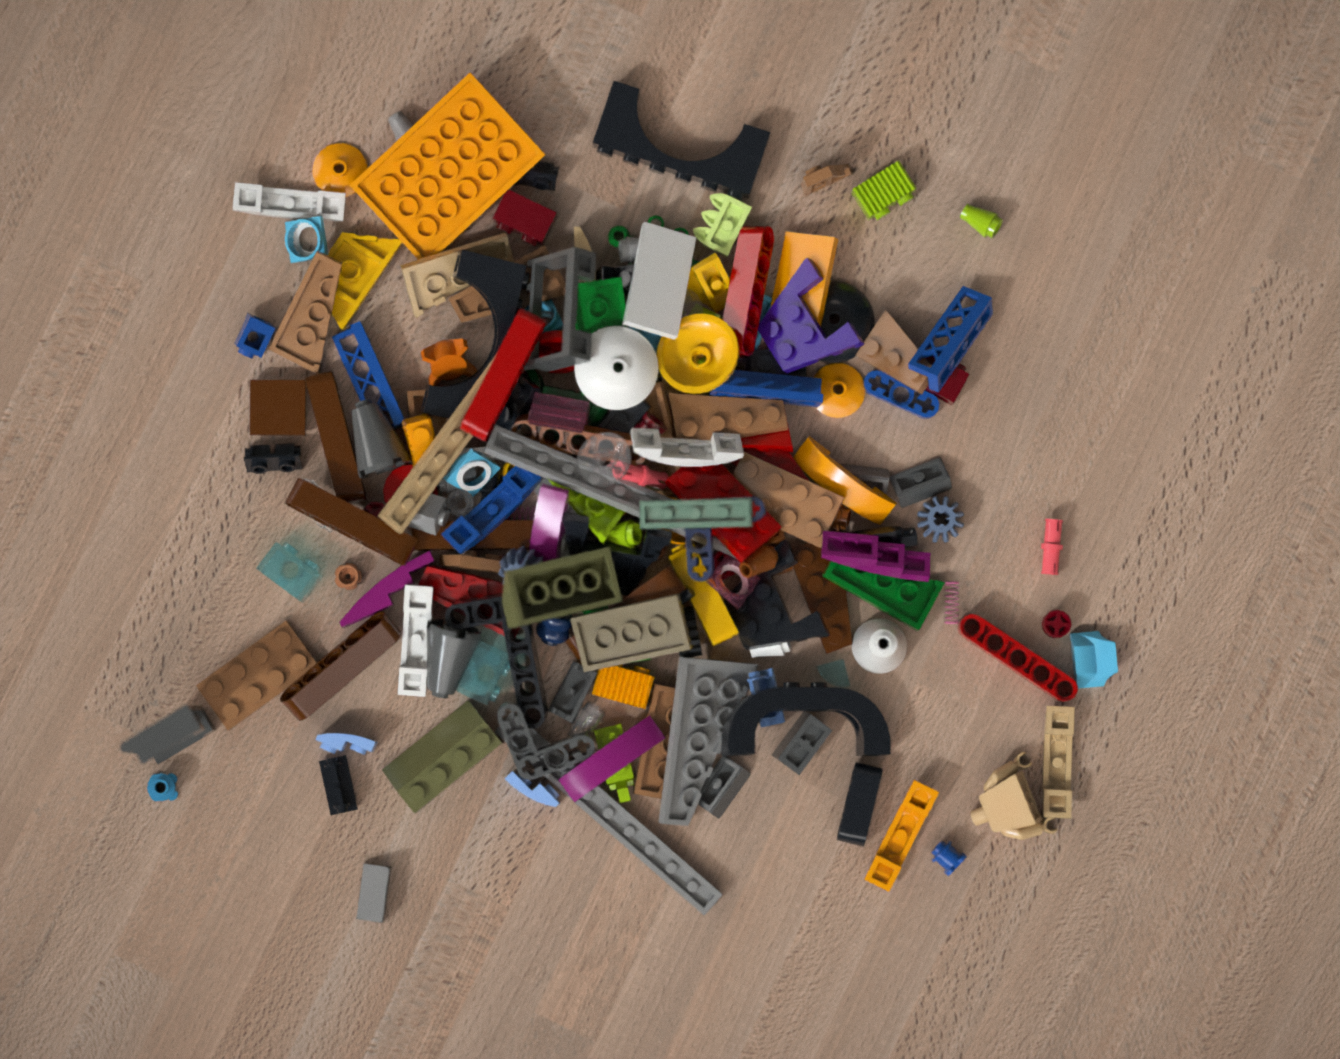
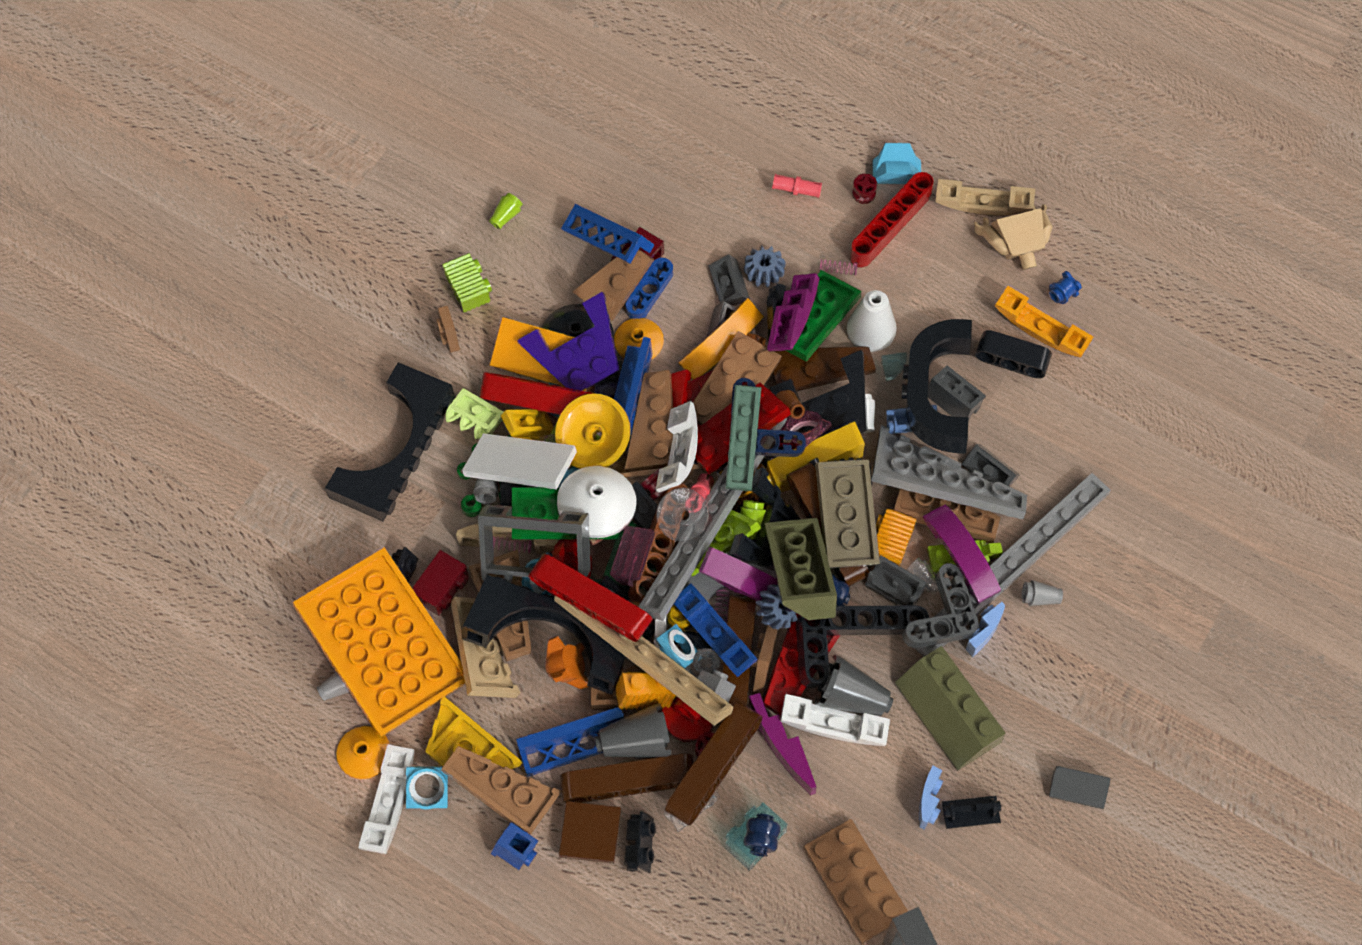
camera: 80 degrees left, 20 degrees down
(280, 576) = (762, 835): none -> dark blue piece
(340, 666) = (854, 795): reddish brown beam -> none
(348, 584) = (768, 775): nougat plate -> none
(472, 685) = (865, 646): clear light blue brick -> none
(578, 845) = (1038, 594): none -> light grey cone

